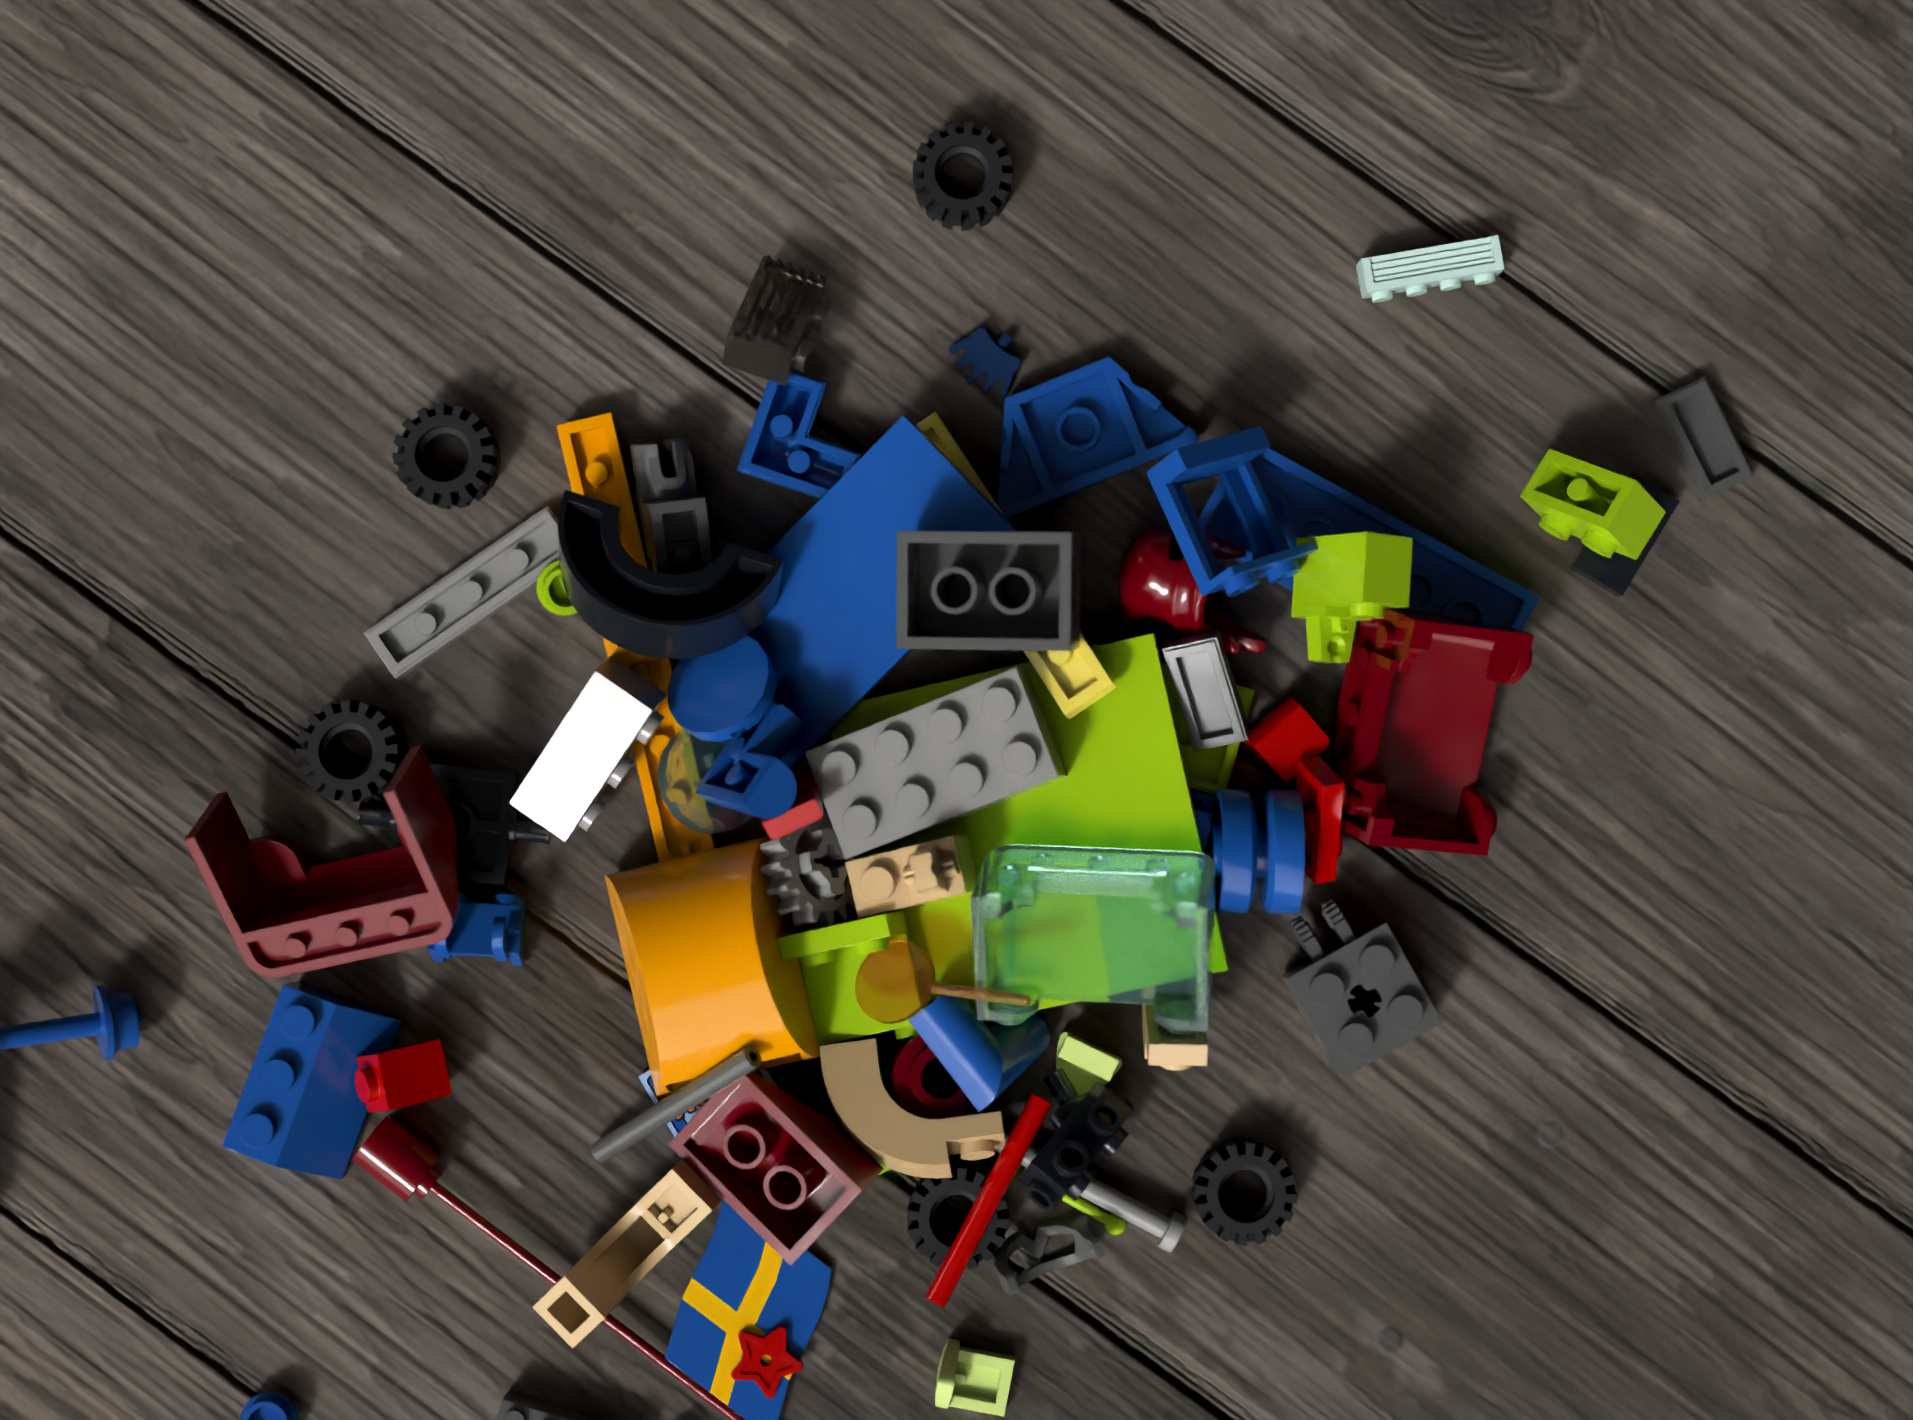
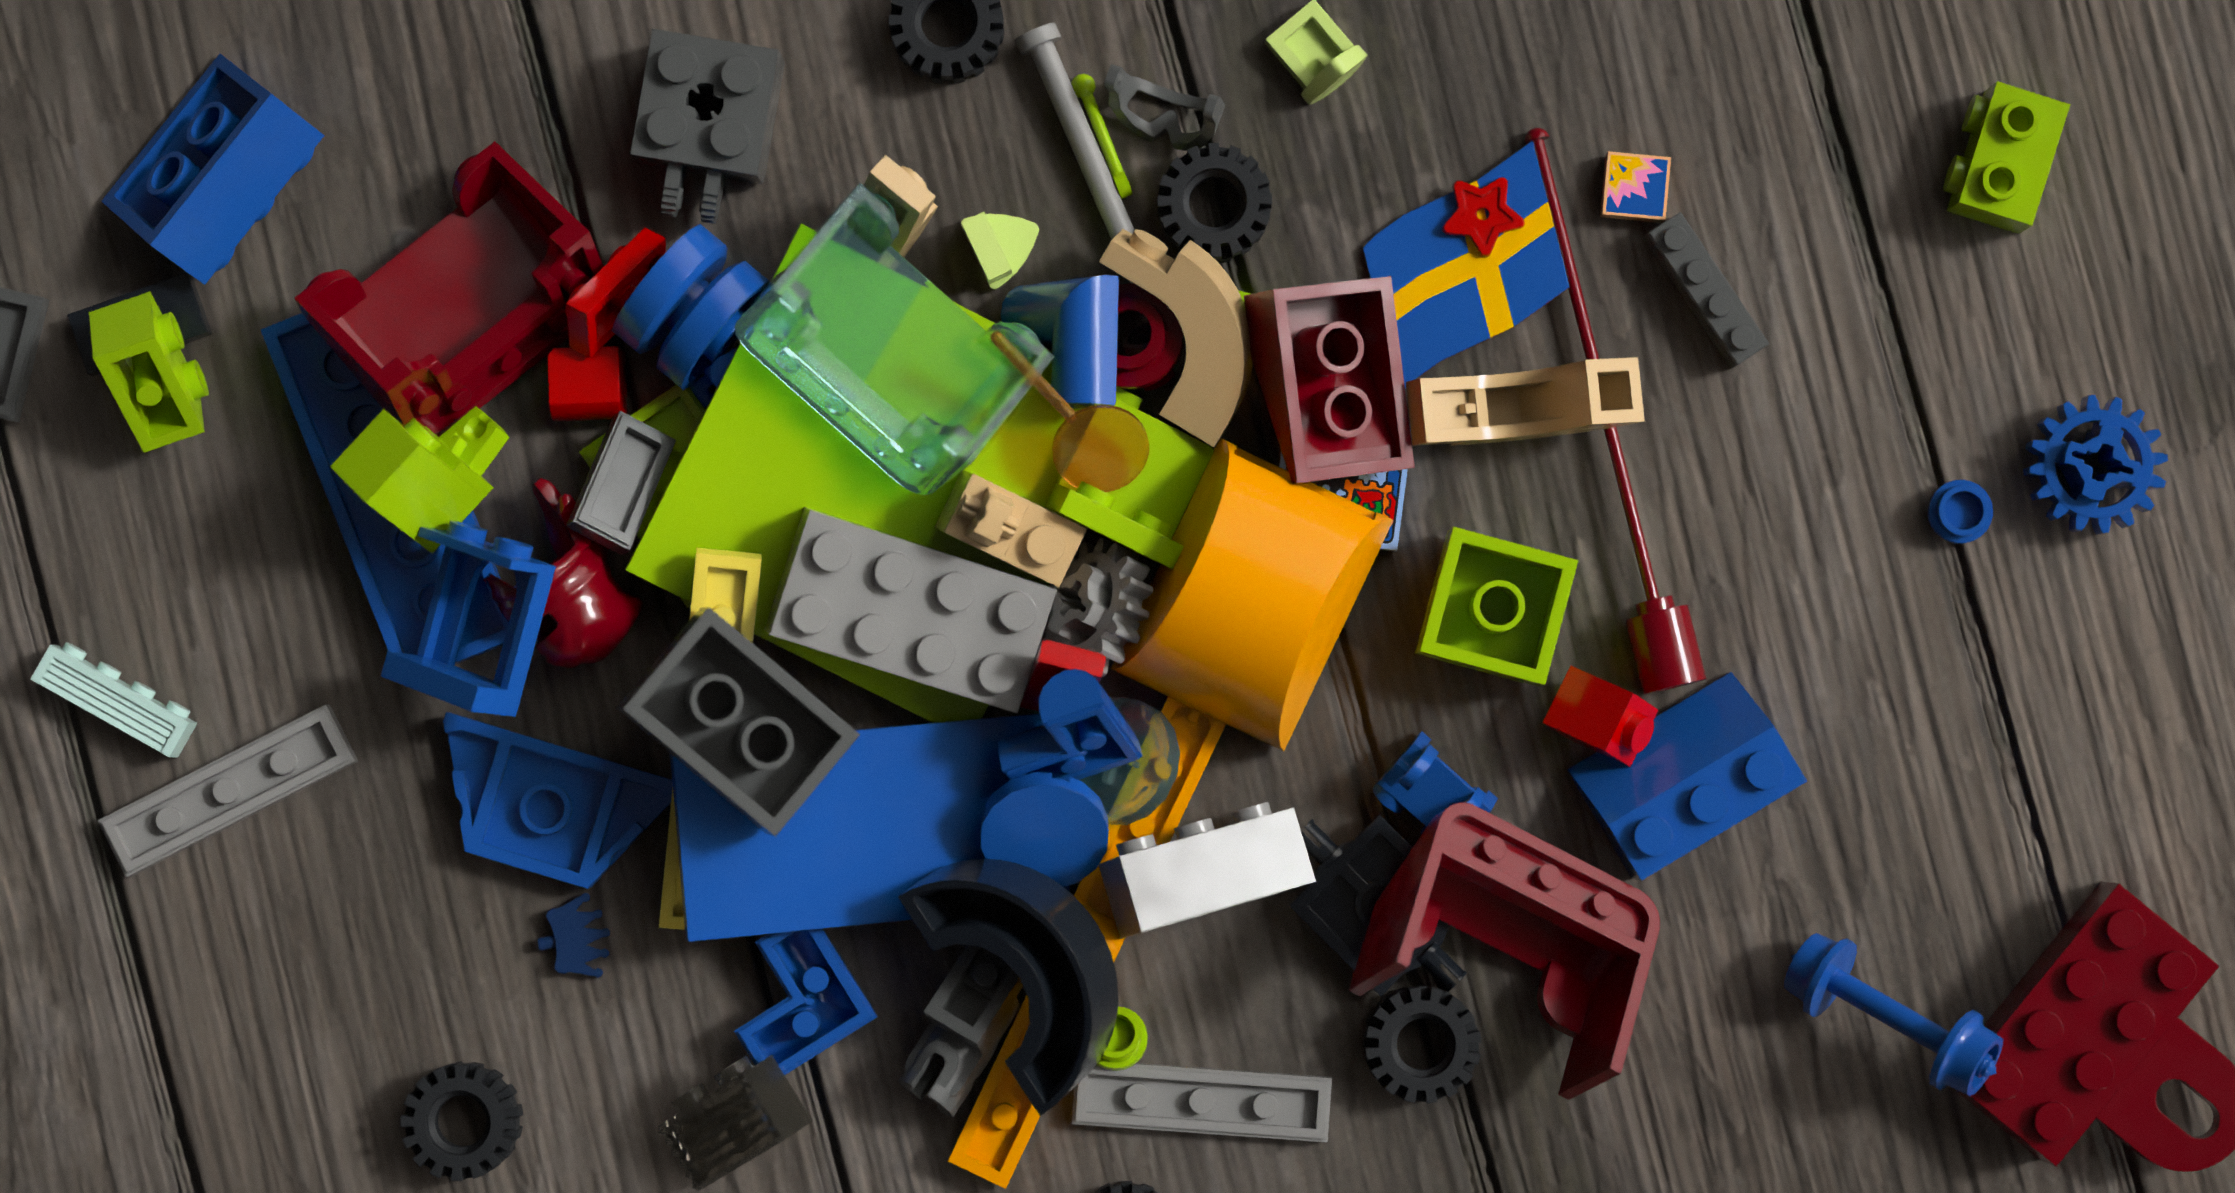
camera: 135 degrees left, 0 degrees up
(535, 1093) = (1496, 606): none -> lime brick
(676, 1104) = (1378, 496): dark grey piece -> none
(988, 1200) = (1173, 194): red piece -> none
(1084, 1129) = (1040, 186): black brick -> none
(1303, 269) = (227, 790): none -> light grey tile
(1663, 679) = (212, 169): none -> blue slope

